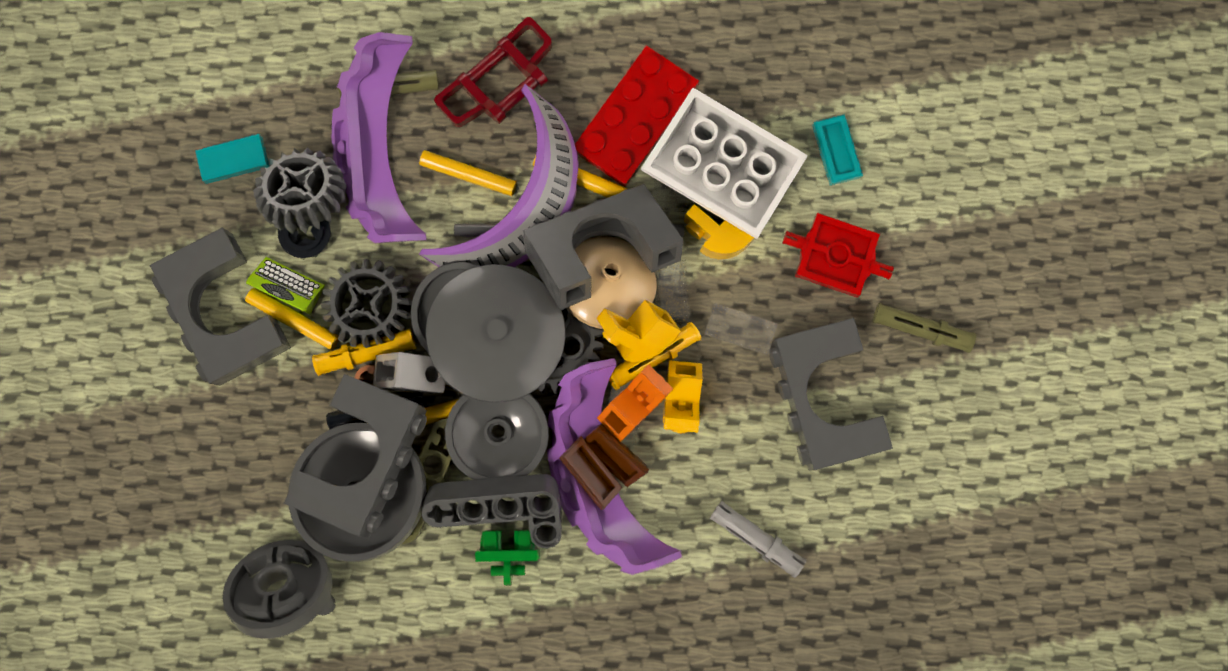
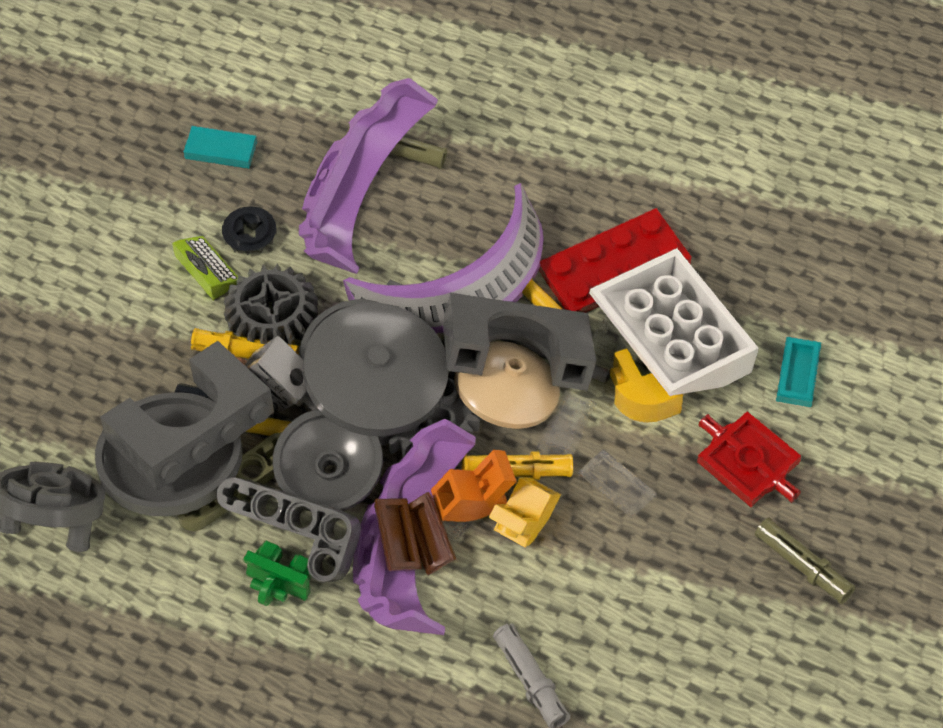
camera: 30 degrees right, 25 degrees down
(183, 280) = (118, 220): dark grey arch -> none
(292, 318) = (195, 293): yellow piece -> none
(300, 190) = (266, 189): dark grey gear -> none
(467, 81) = (522, 158): dark red bar -> none
(468, 173) = (424, 241): yellow piece -> none
(642, 335) = (519, 435): yellow brick -> none
(822, 442) = (647, 616): dark grey arch -> none

